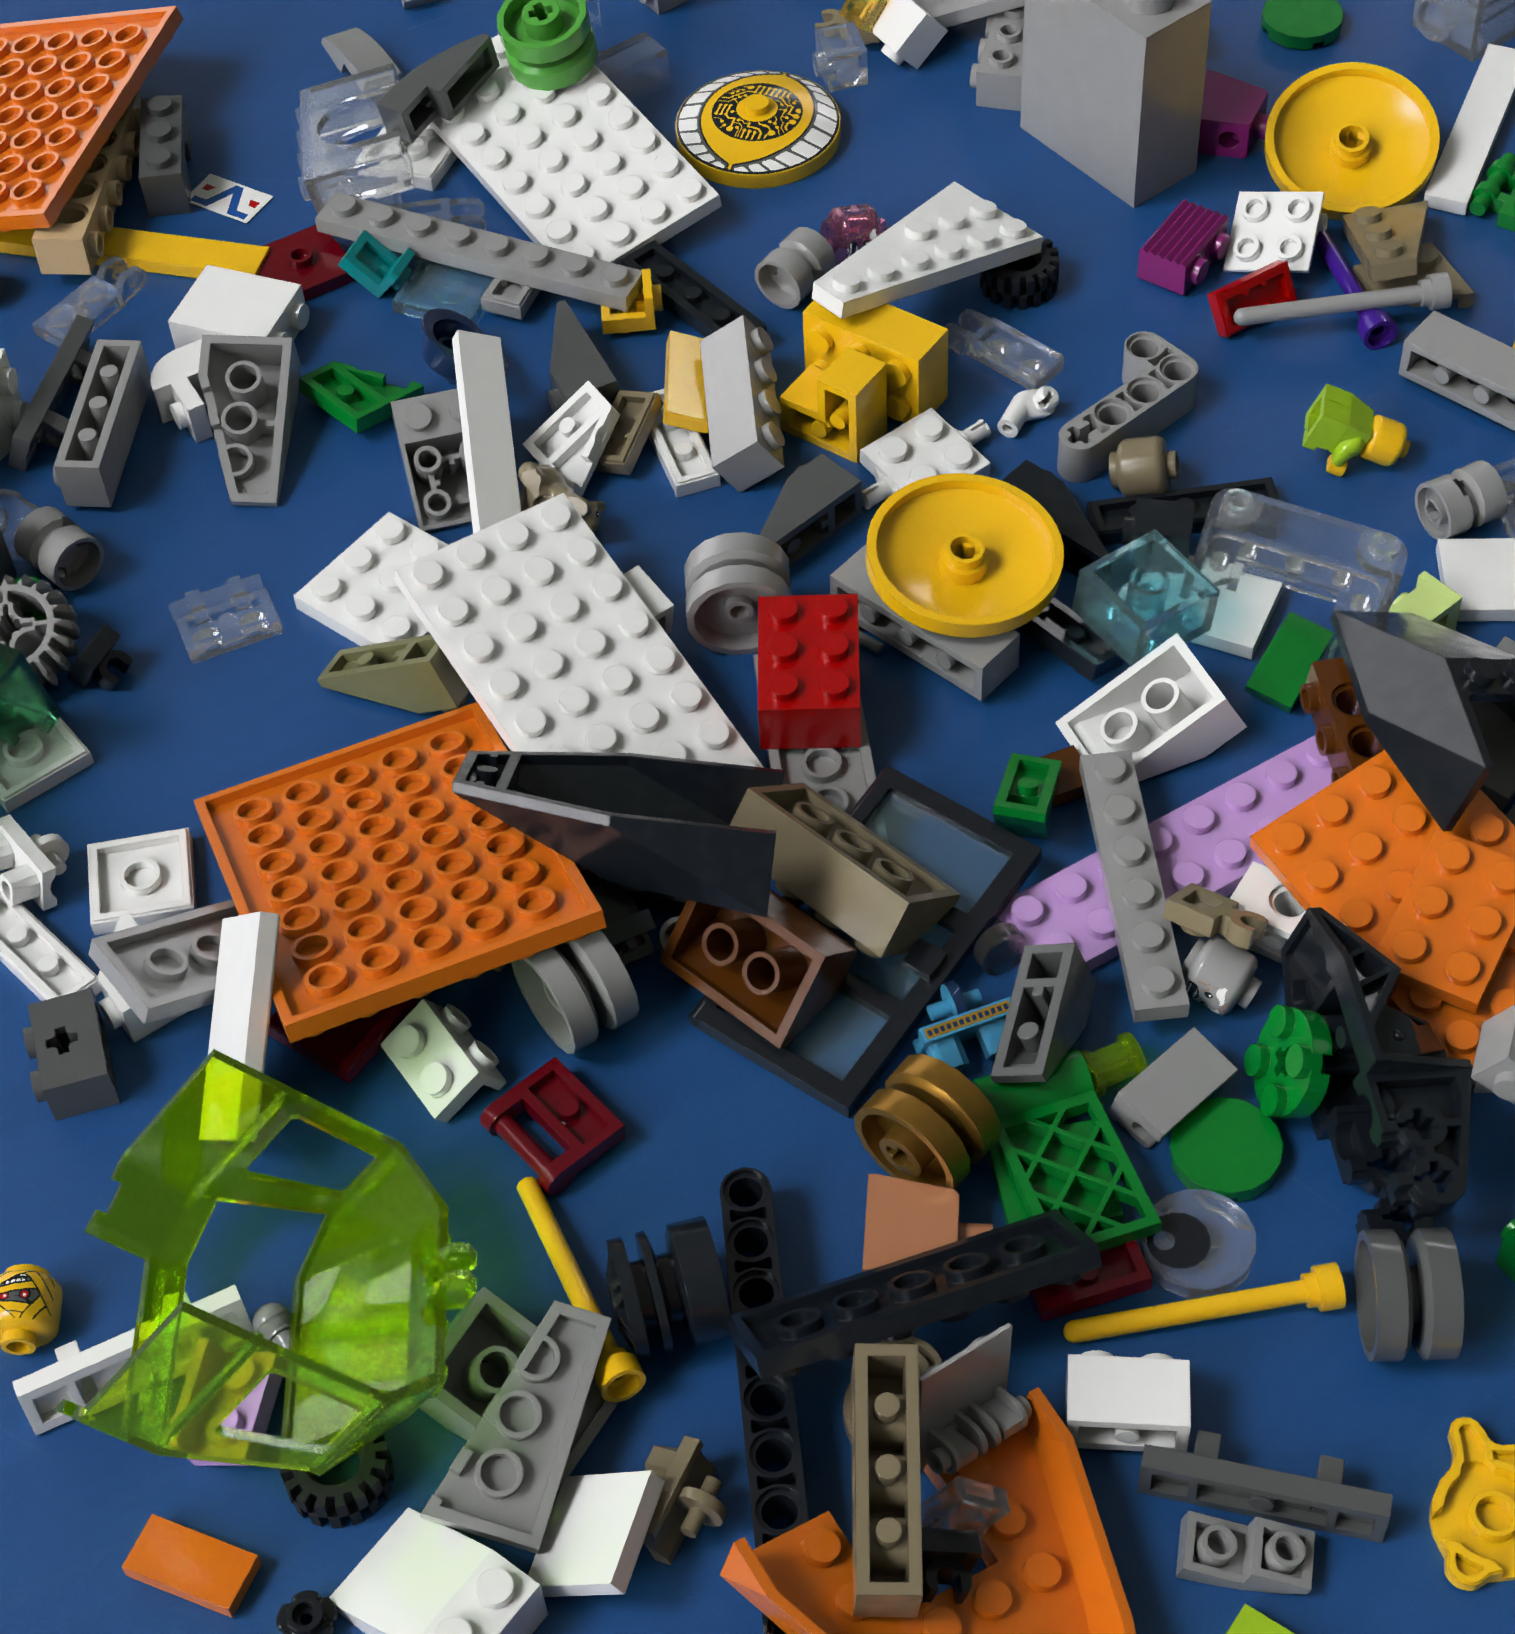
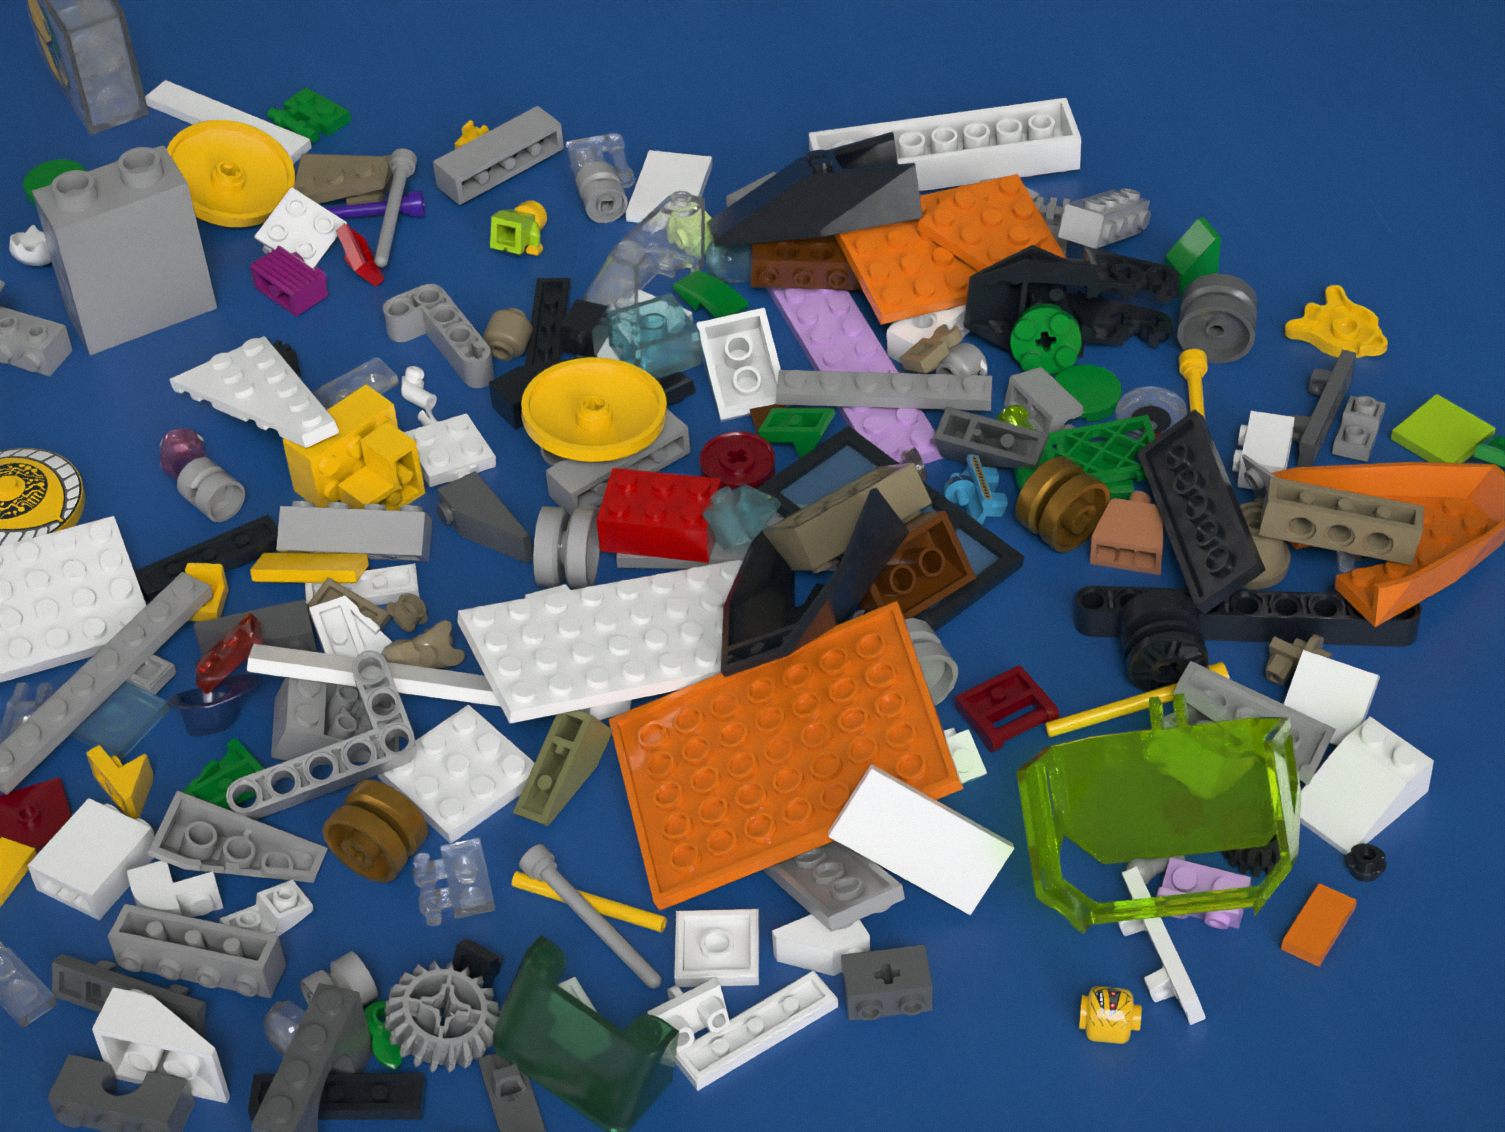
camera: 80 degrees left, 5 degrees down
(171, 474) = (275, 910): none -> white slope
(206, 747) = (602, 905): none -> yellow piece
(237, 681) = (540, 864): none -> light grey piece
(262, 518) = (375, 831): none -> pearl gold wheel
(344, 313) = (125, 784): none -> yellow slope
(376, 265) = (70, 758): teal bracket -> none
(404, 484) = (337, 754): none -> light grey beam
(516, 331) = (228, 653): none -> clear red plate
(632, 471) = (408, 611): none -> dark tan plate
(806, 744) = (739, 514): none -> clear light blue slope
(949, 747) = (738, 459): none -> dark red wheel

